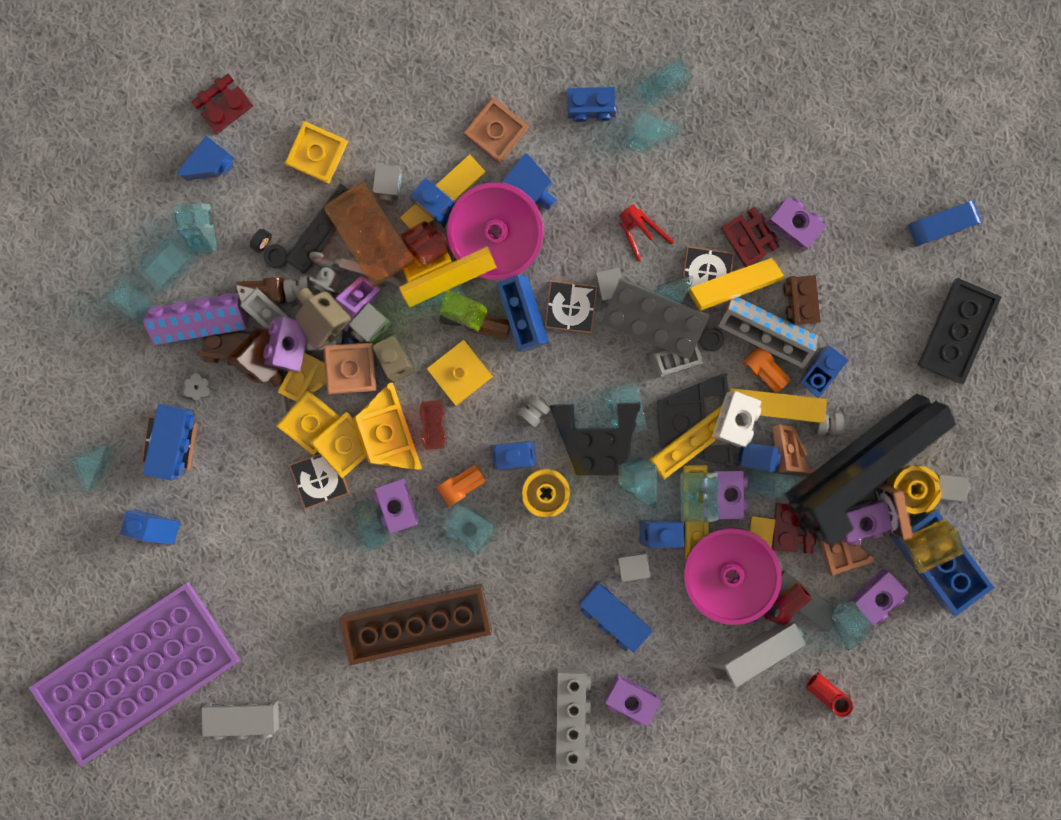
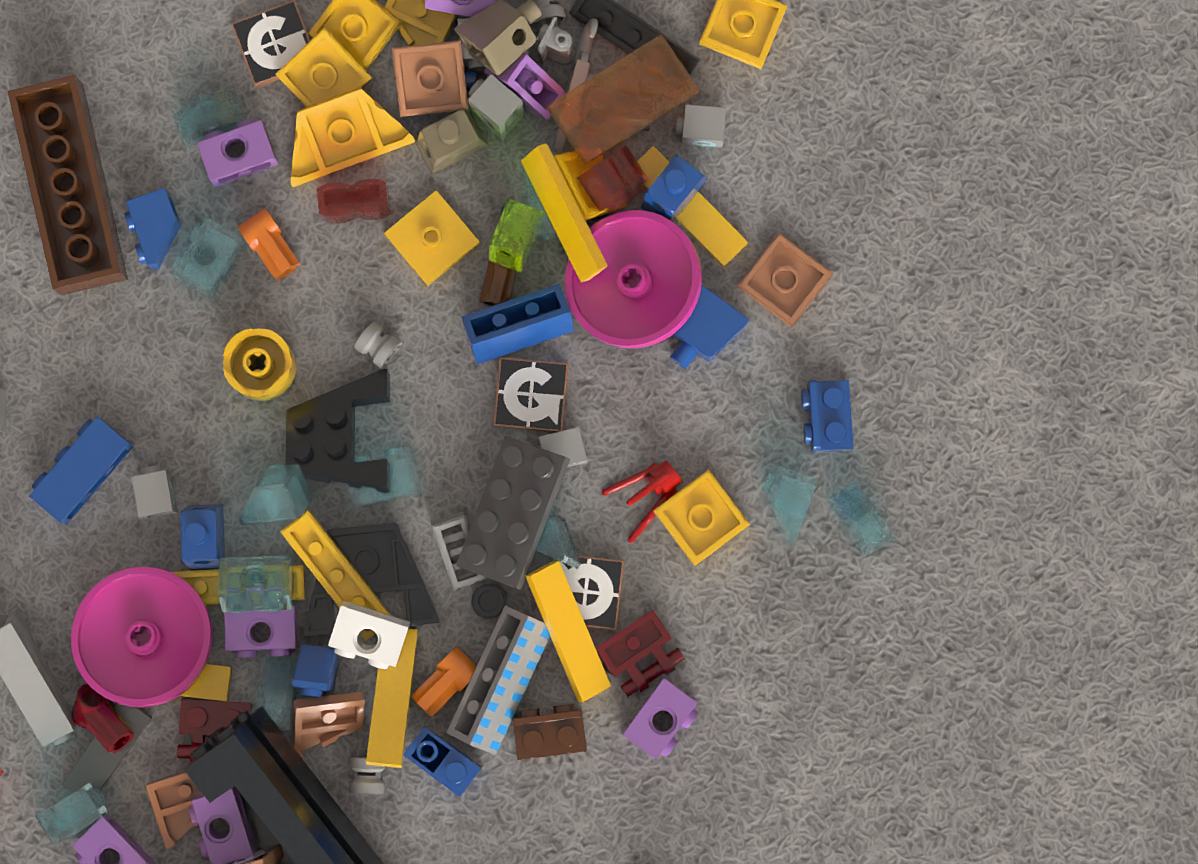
camera: 90 degrees right, 5 degrees down
(445, 563) = (155, 223): none -> blue slope
(513, 455) = (313, 318): blue torso -> none
(659, 192) = (701, 517): none -> yellow plate

